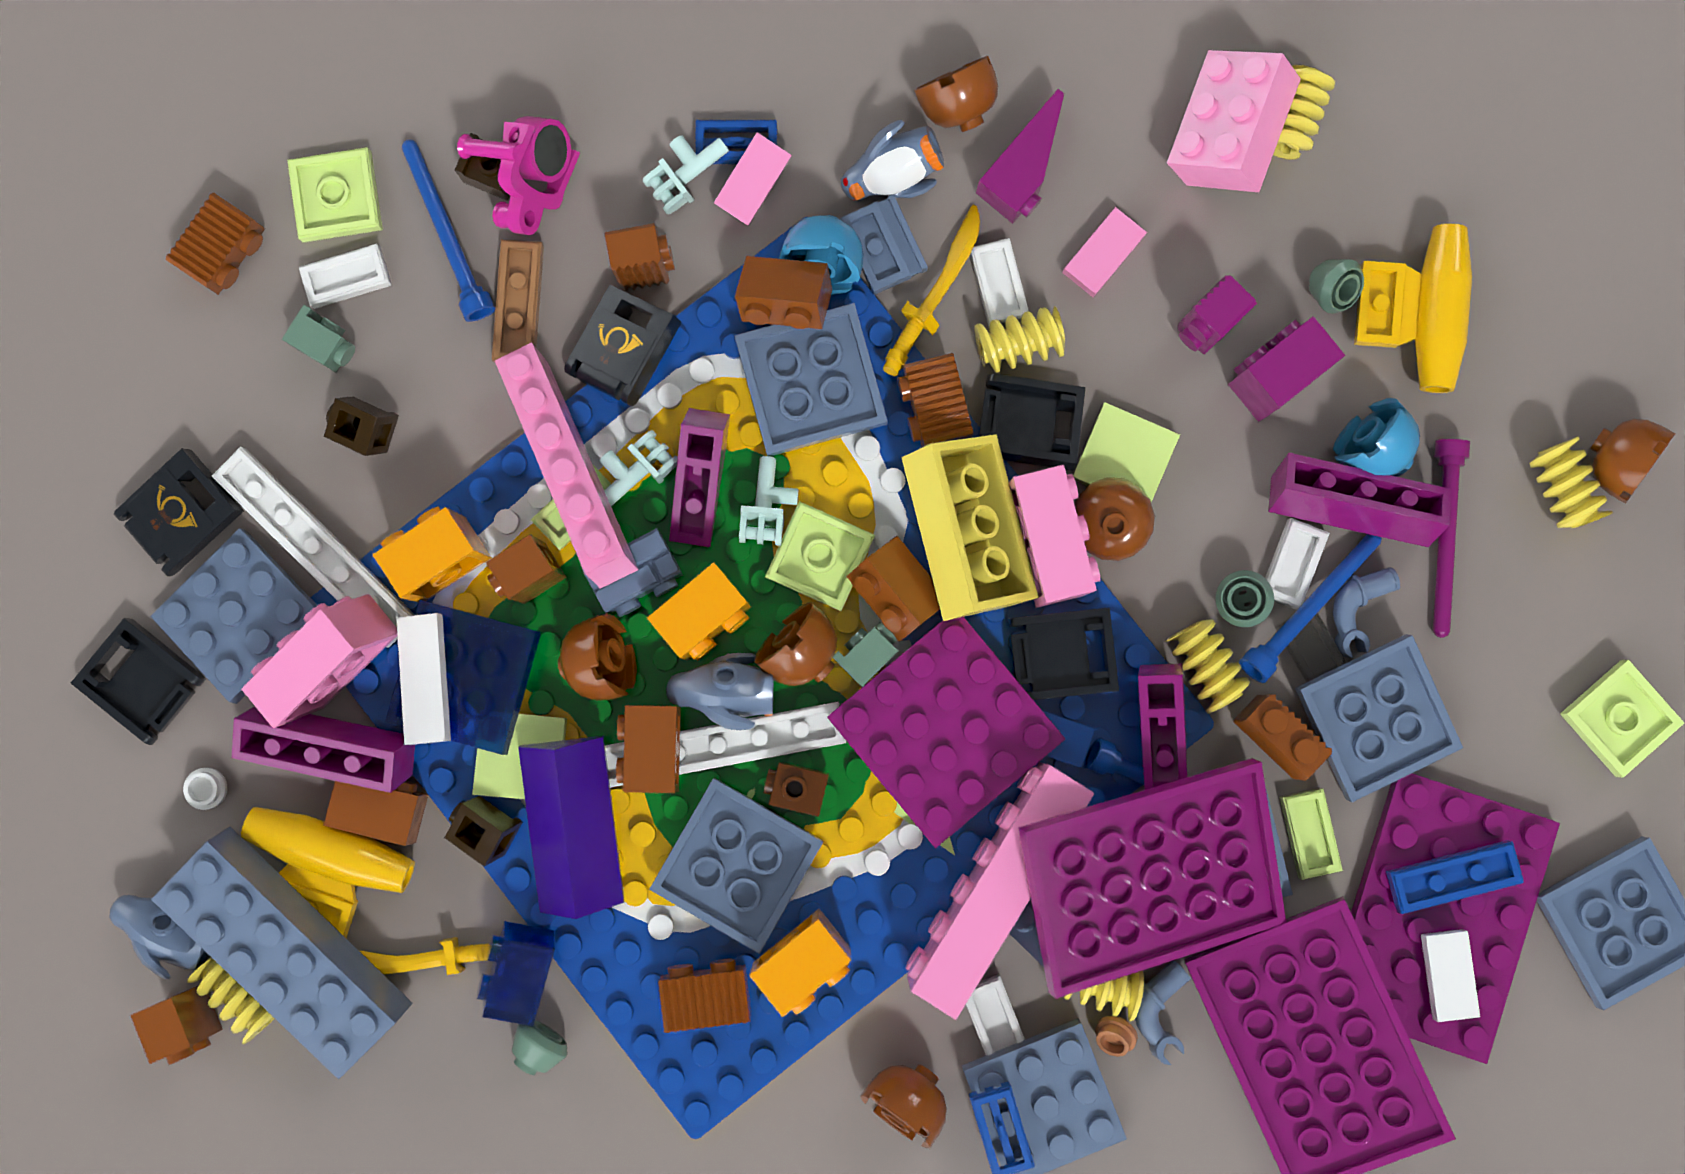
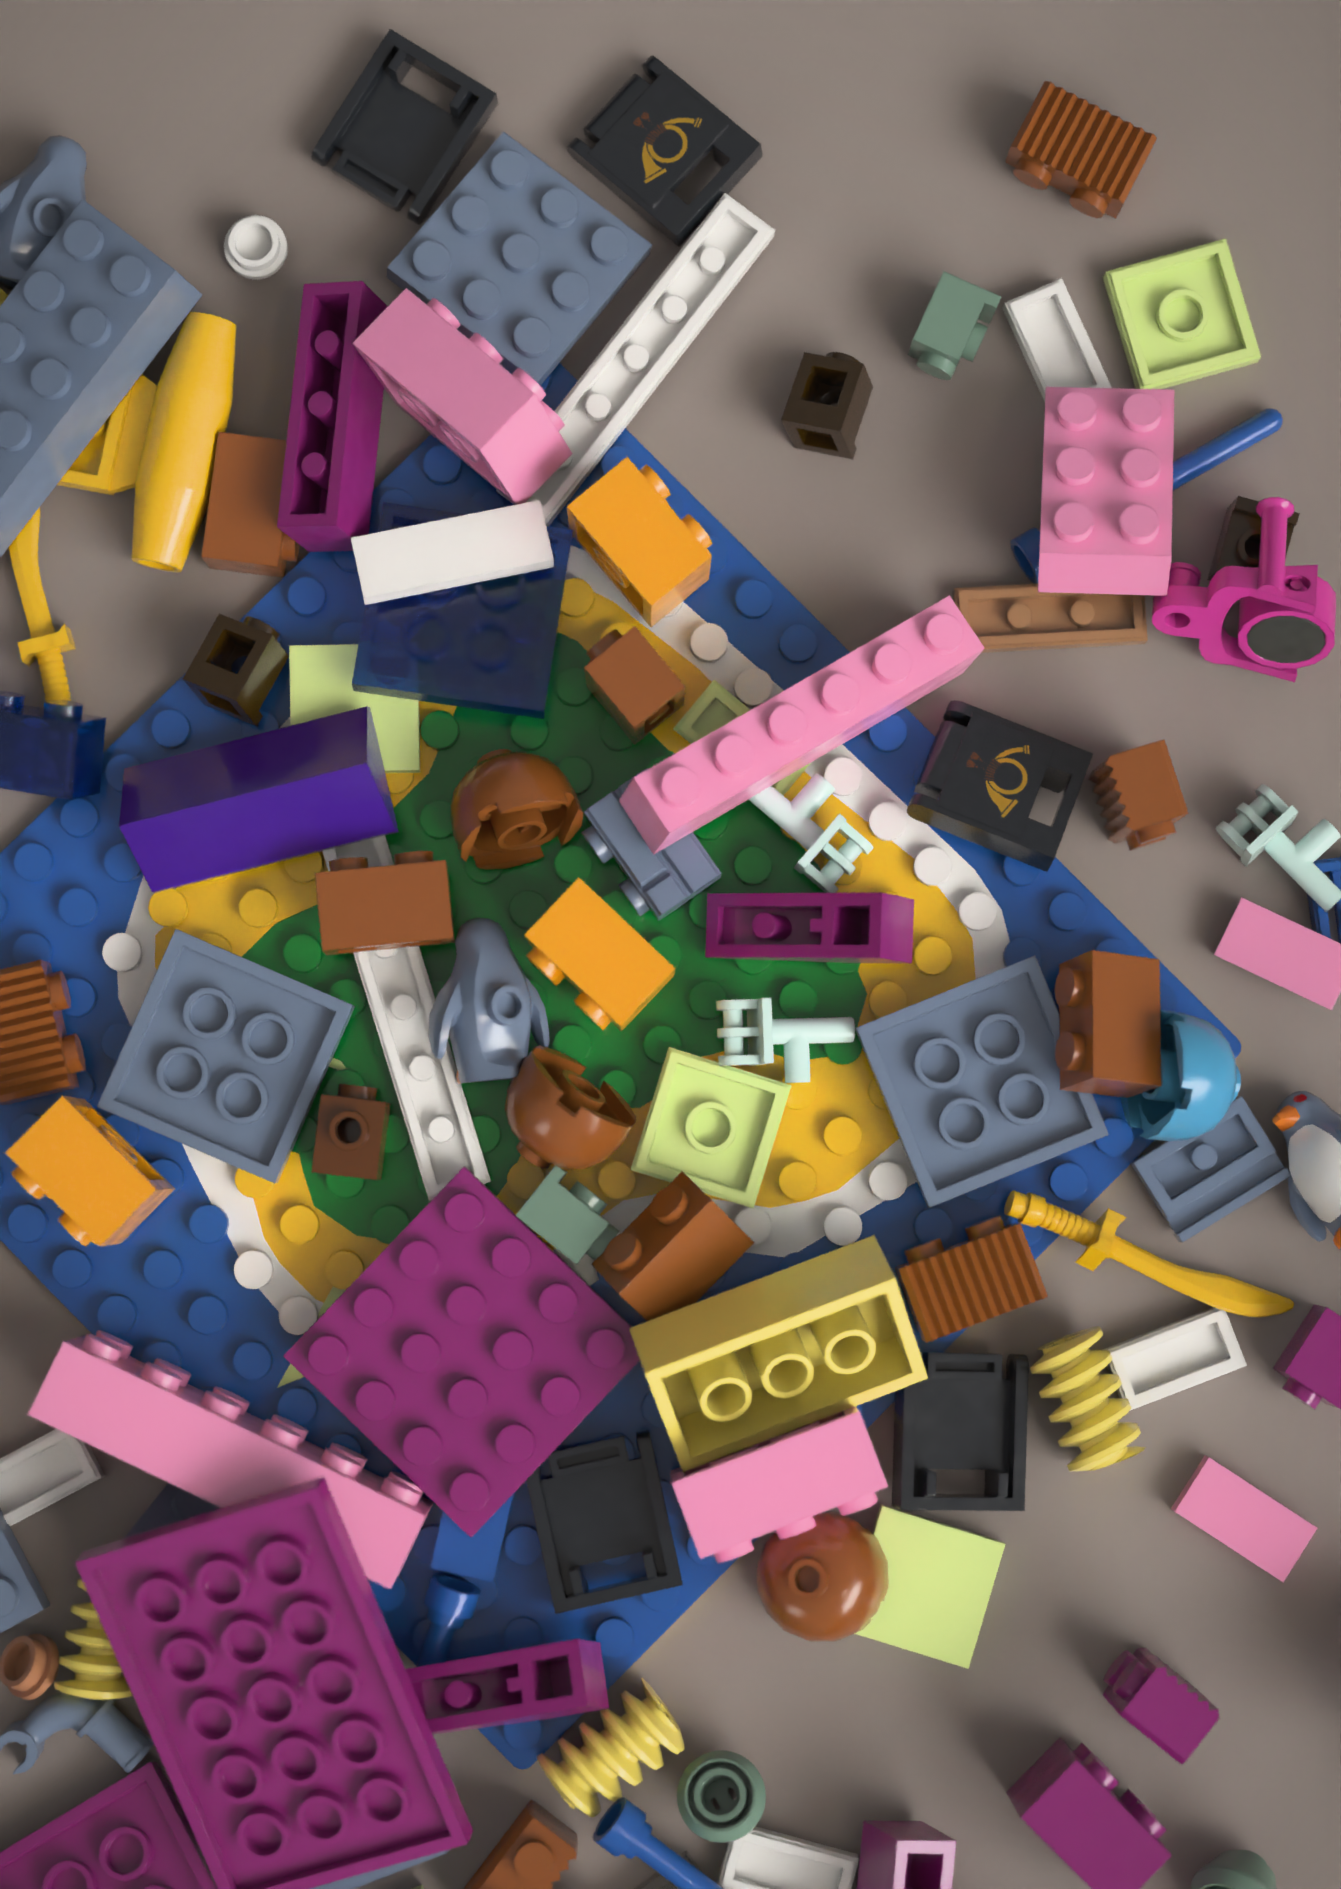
camera: 80 degrees right, 0 degrees up
(439, 251) = (1106, 491): none -> bright pink brick

